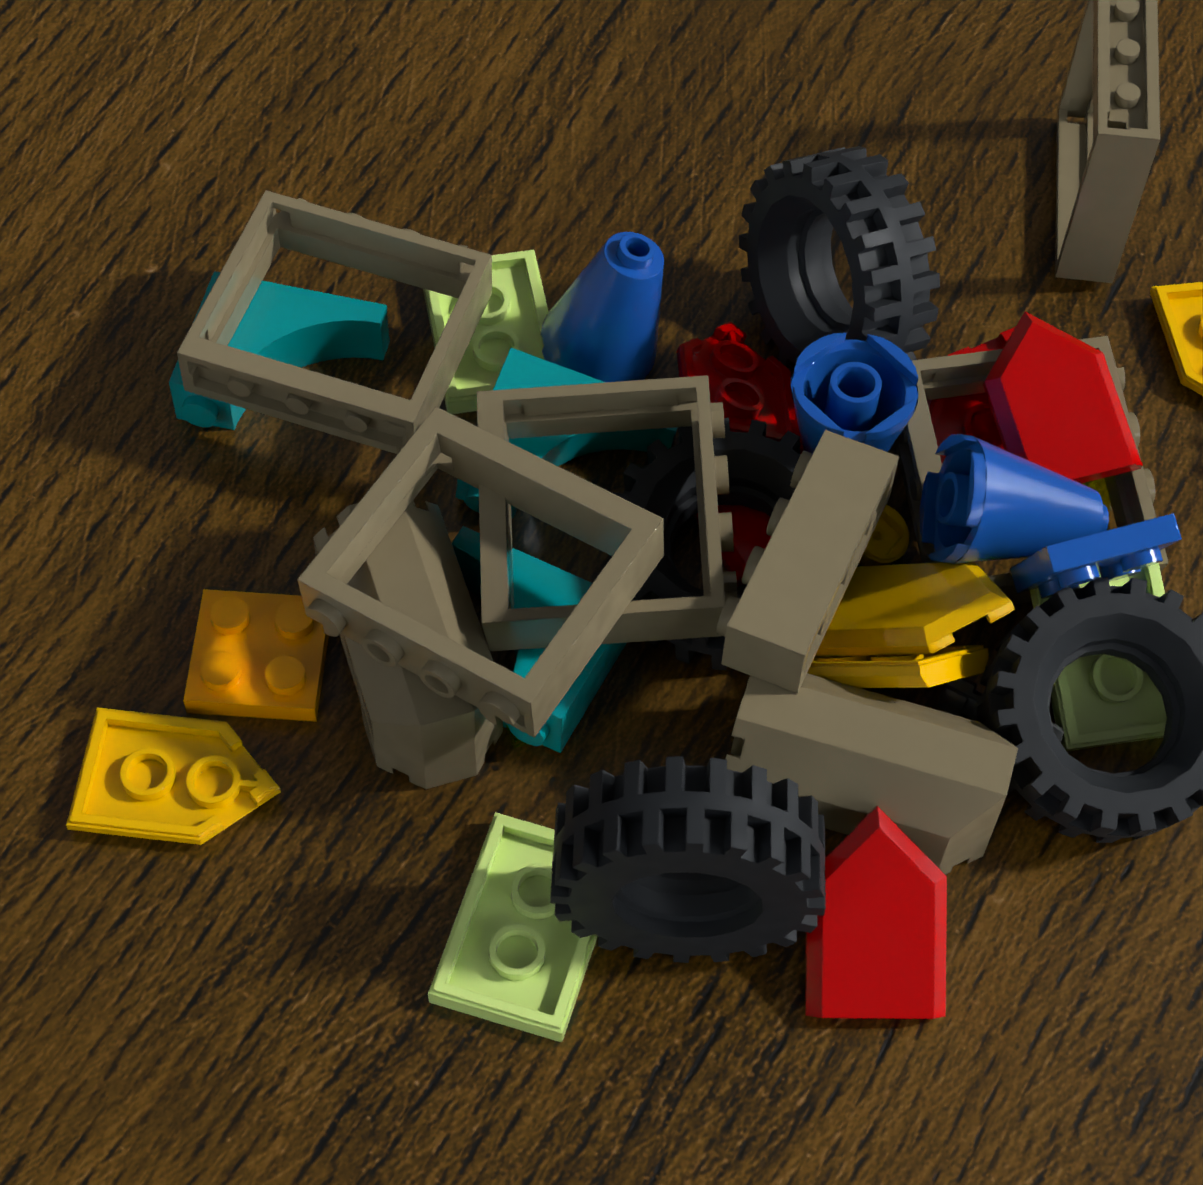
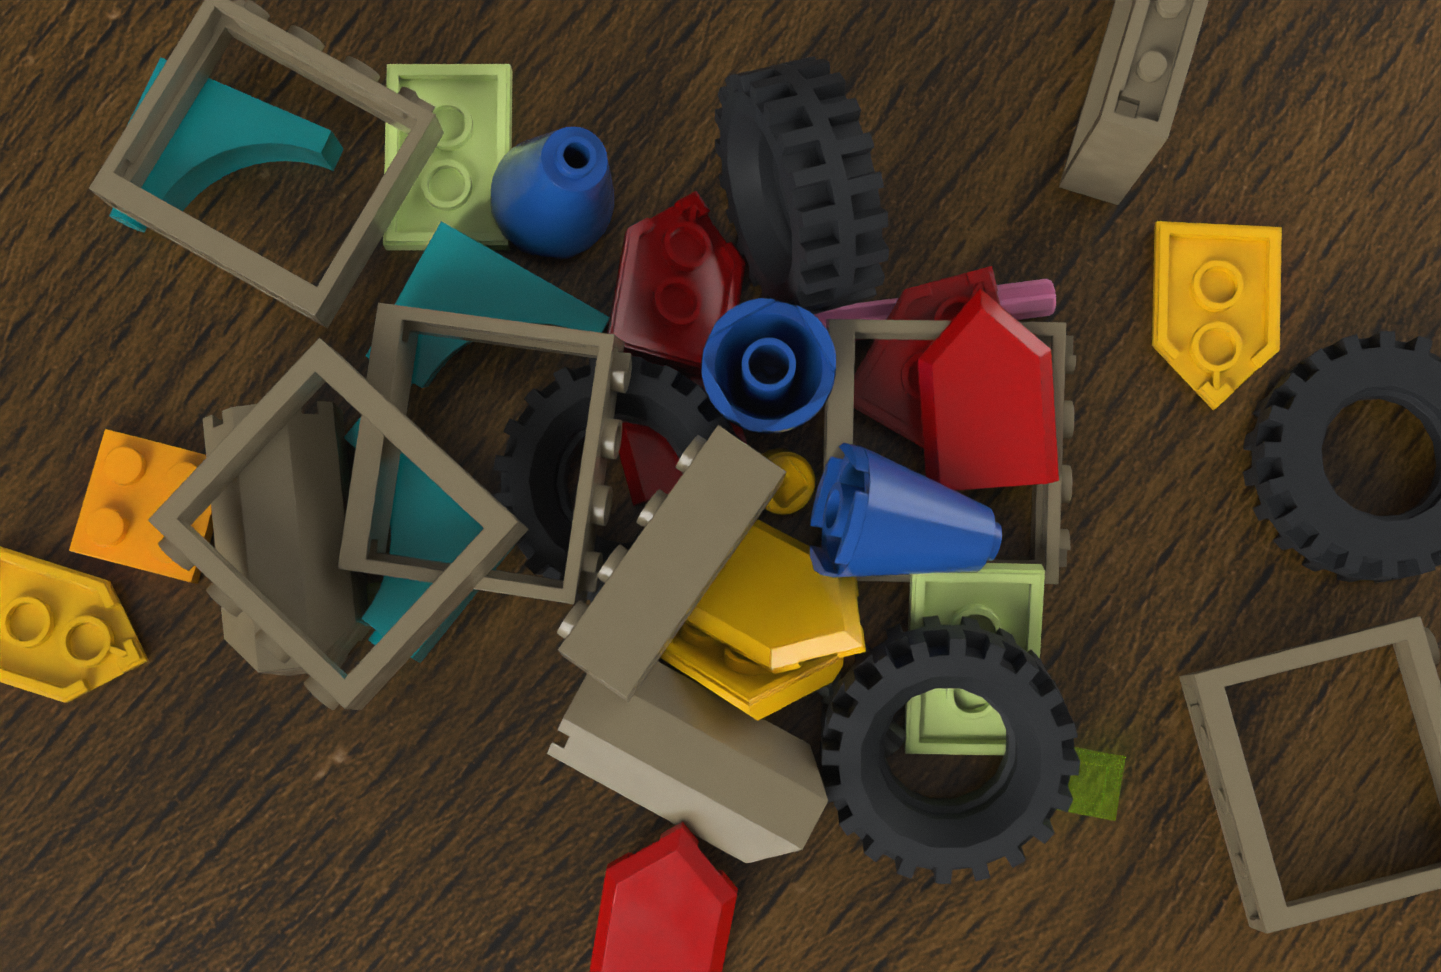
camera: 15 degrees right, 25 degrees up
(507, 947) = (352, 840): yellowish green tile -> none
(688, 860) = (482, 865): black tyre -> none
(1111, 552) = (963, 608): blue plate -> none

